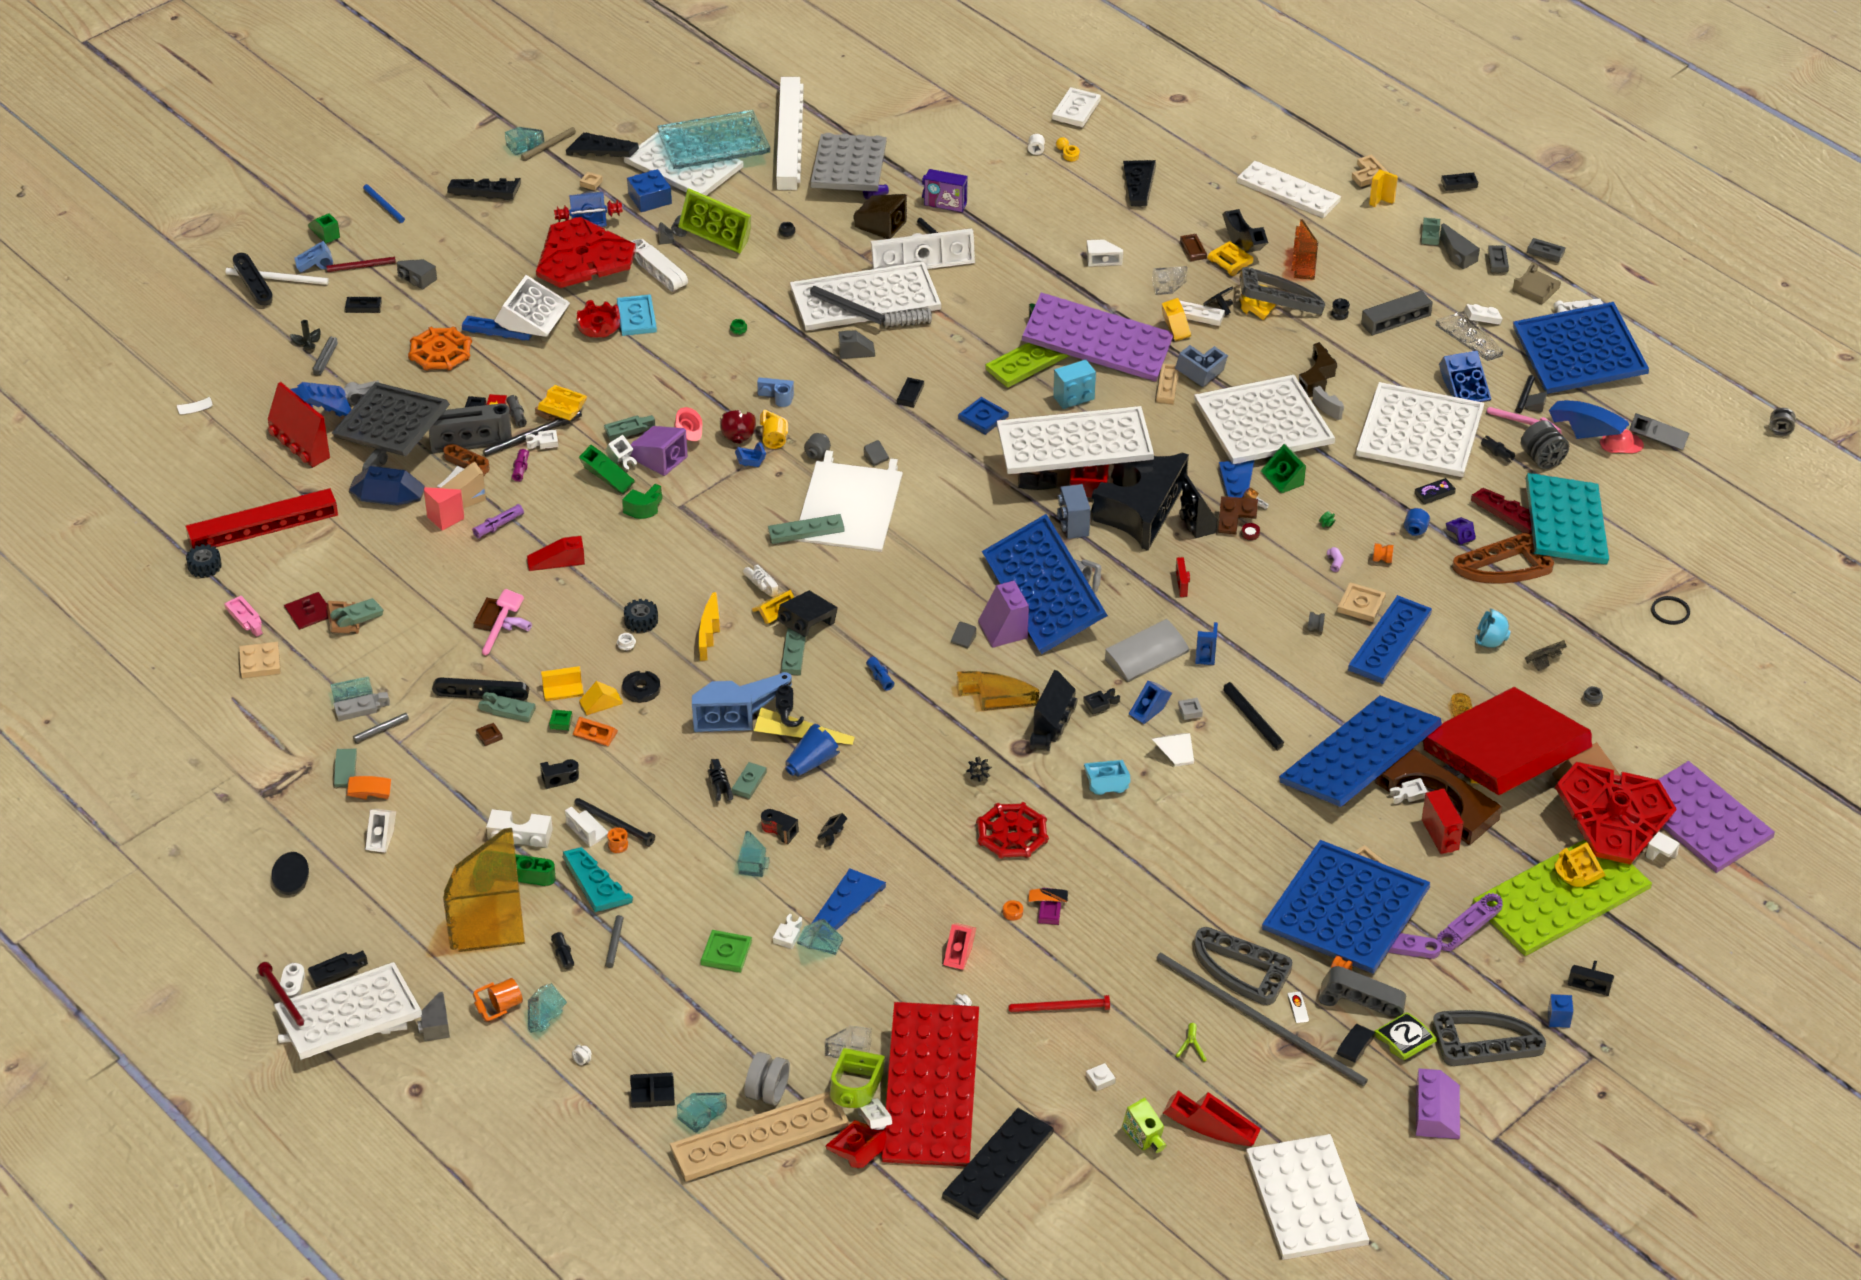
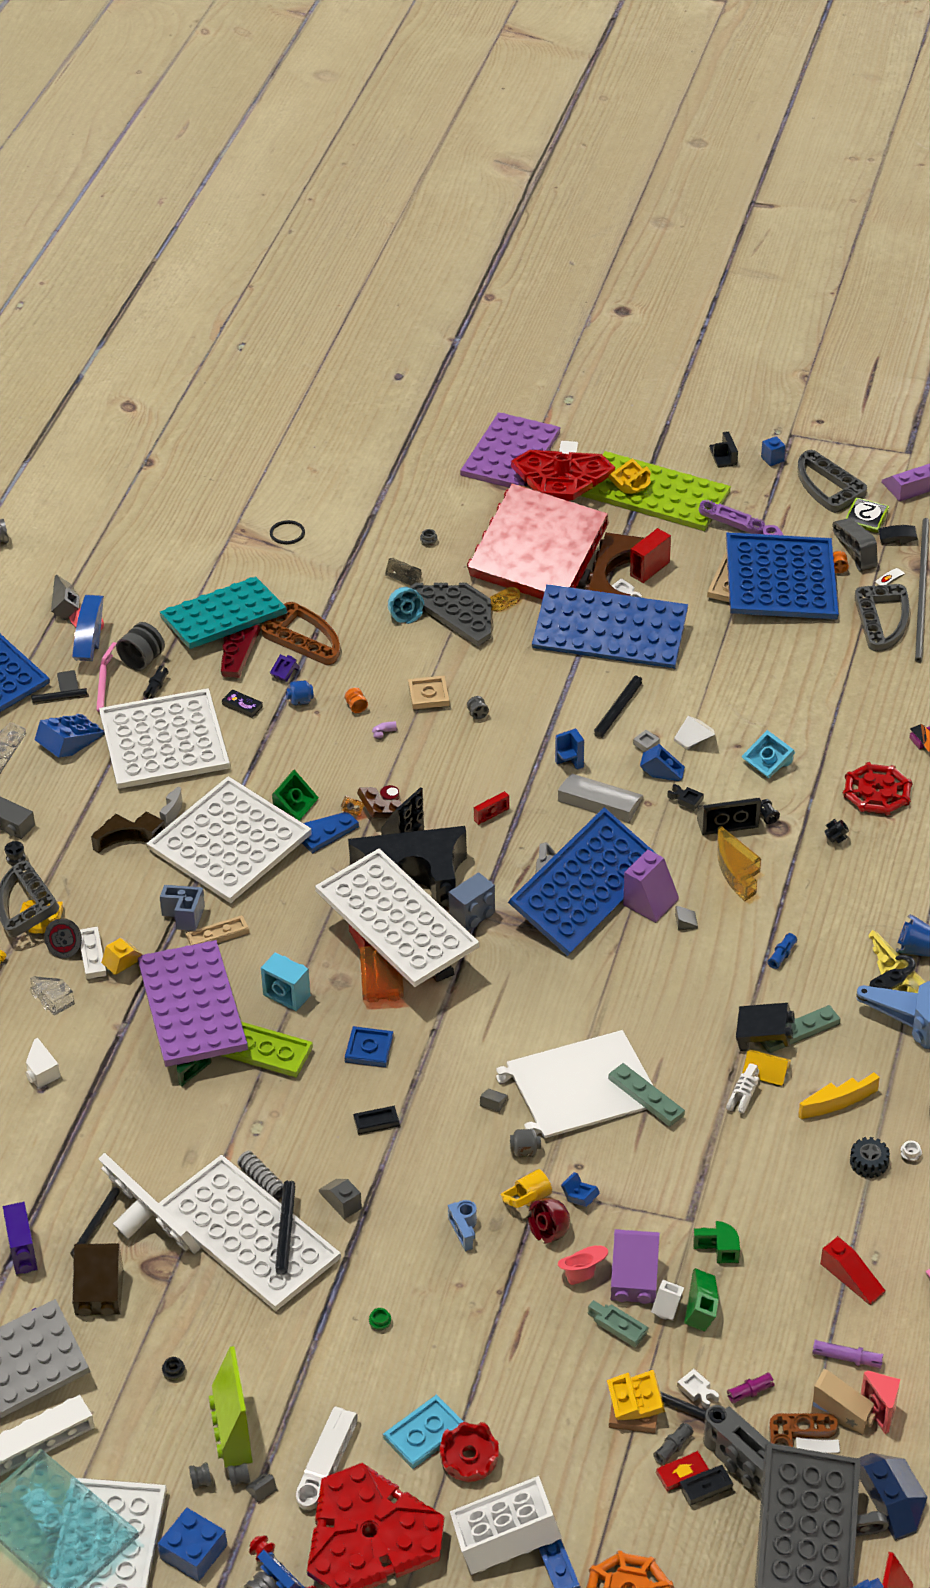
camera: 120 degrees left, 0 degrees up
(1327, 519) = (333, 753): green plate -> none
(1389, 639) = (459, 661): blue plate -> none
(1468, 669) = (459, 608): none -> dark grey plate

